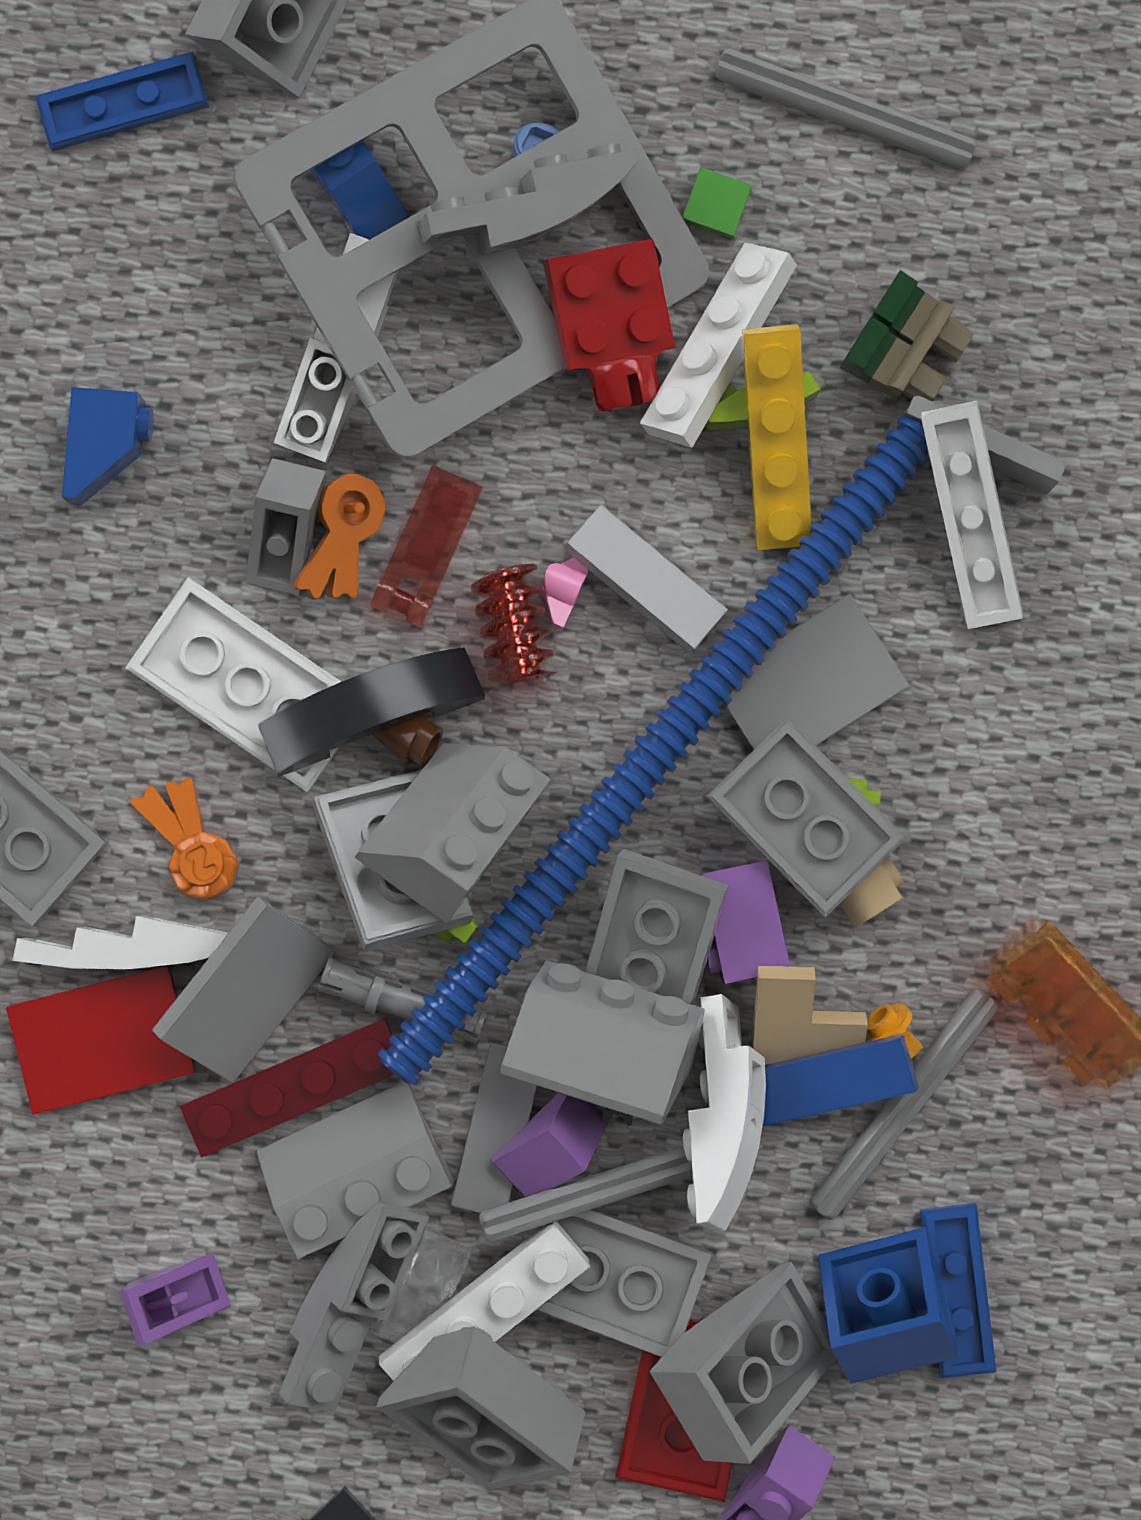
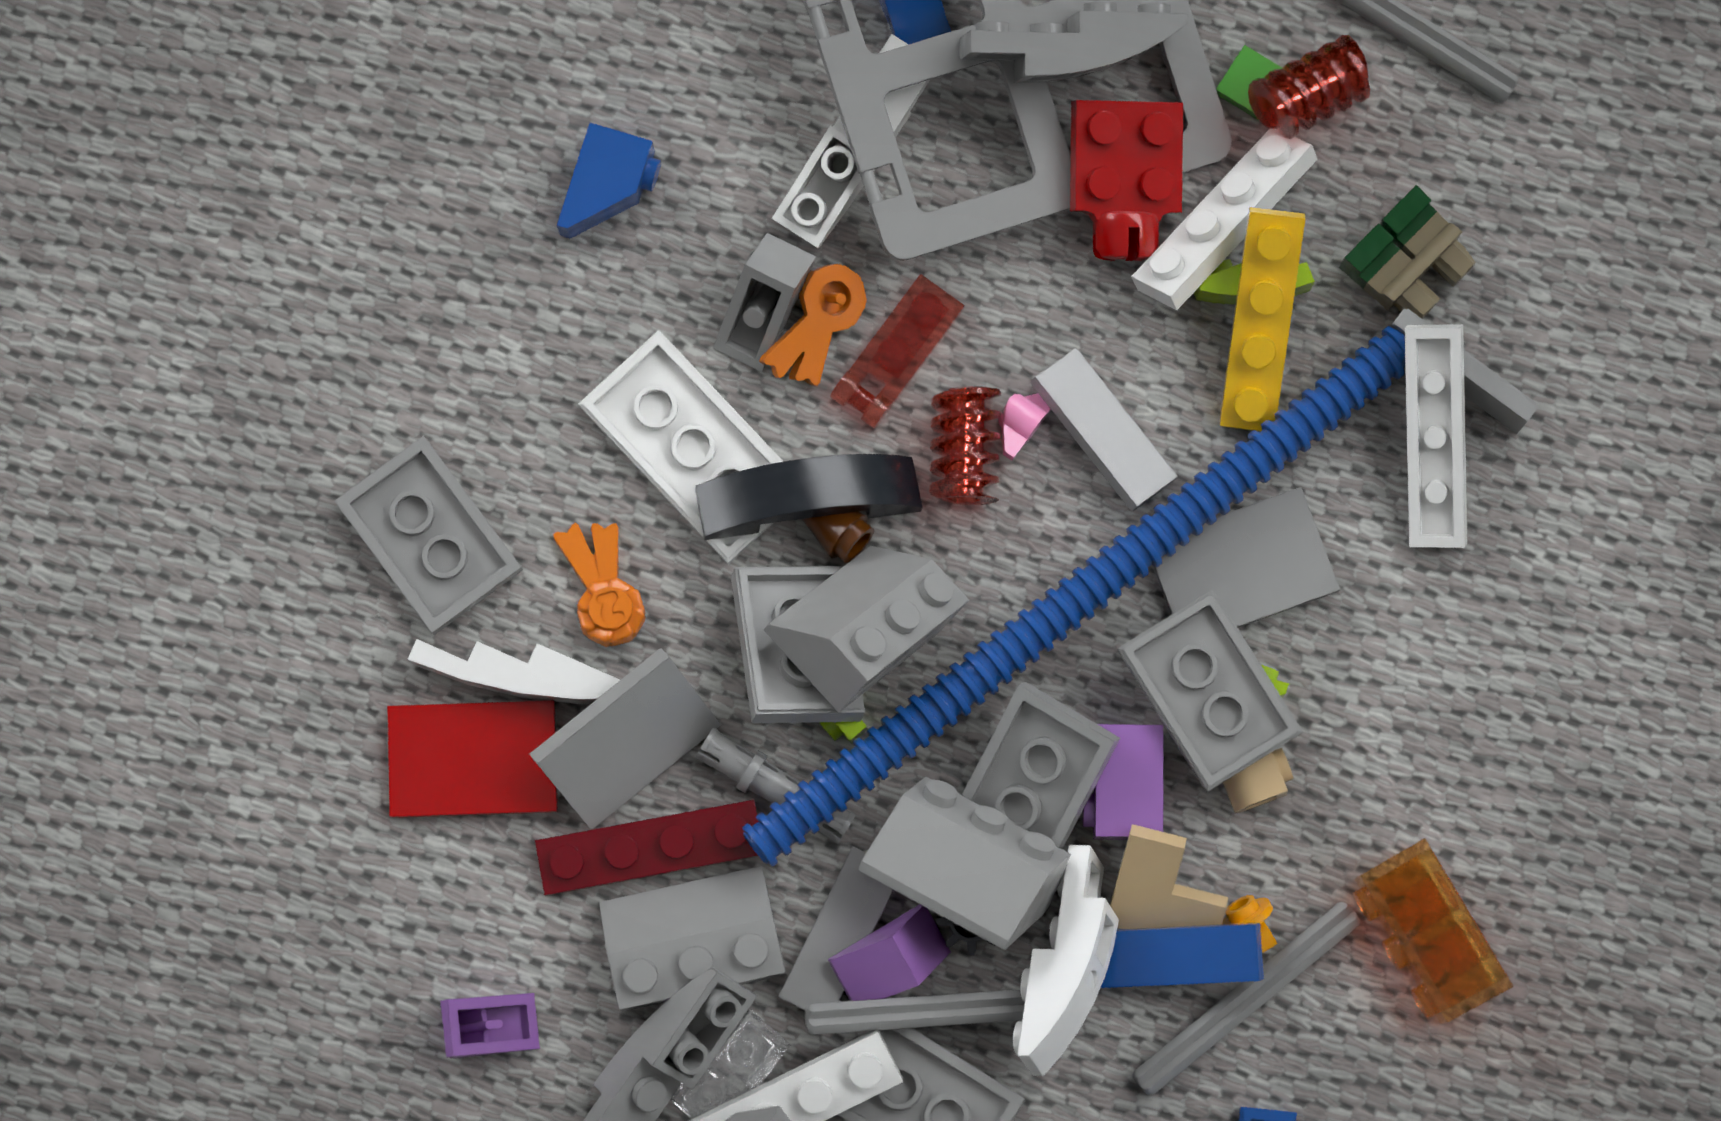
camera: 15 degrees right, 5 degrees down
(776, 195) = (1311, 87): none -> clear red piece

